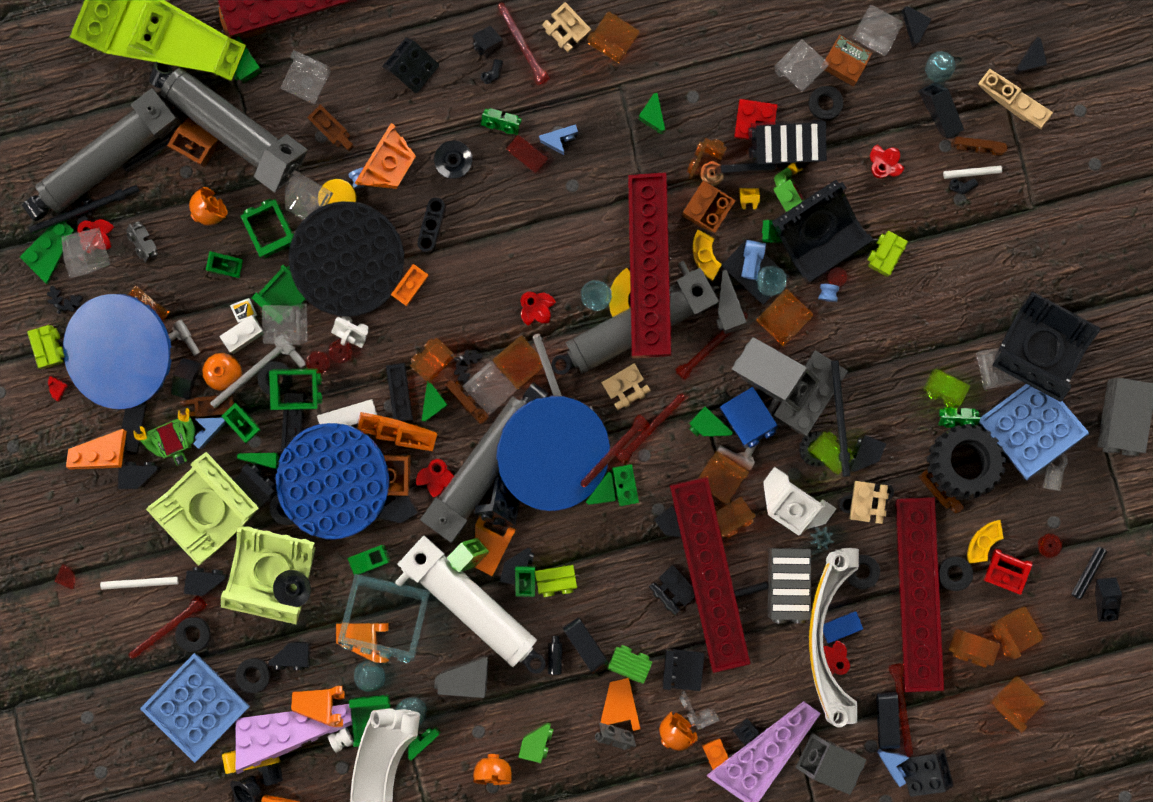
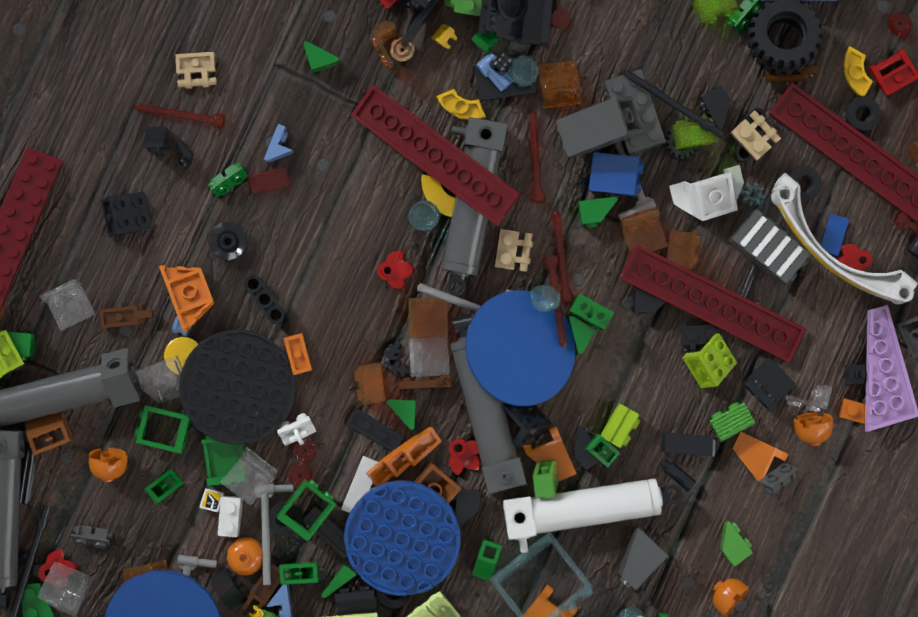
camera: 55 degrees left, 0 degrees up
(607, 440) = (545, 298): none -> clear light blue hair
(613, 37) = (233, 39): clear orange bracket -> none
(663, 611) = (711, 363): none -> lime bracket
(708, 207) = (426, 73): dark orange slope -> none
(729, 312) = (520, 122): dark grey slope -> none
(762, 258) = (501, 63): none -> black wheel
(828, 292) = (568, 35): medium blue wheel -> none

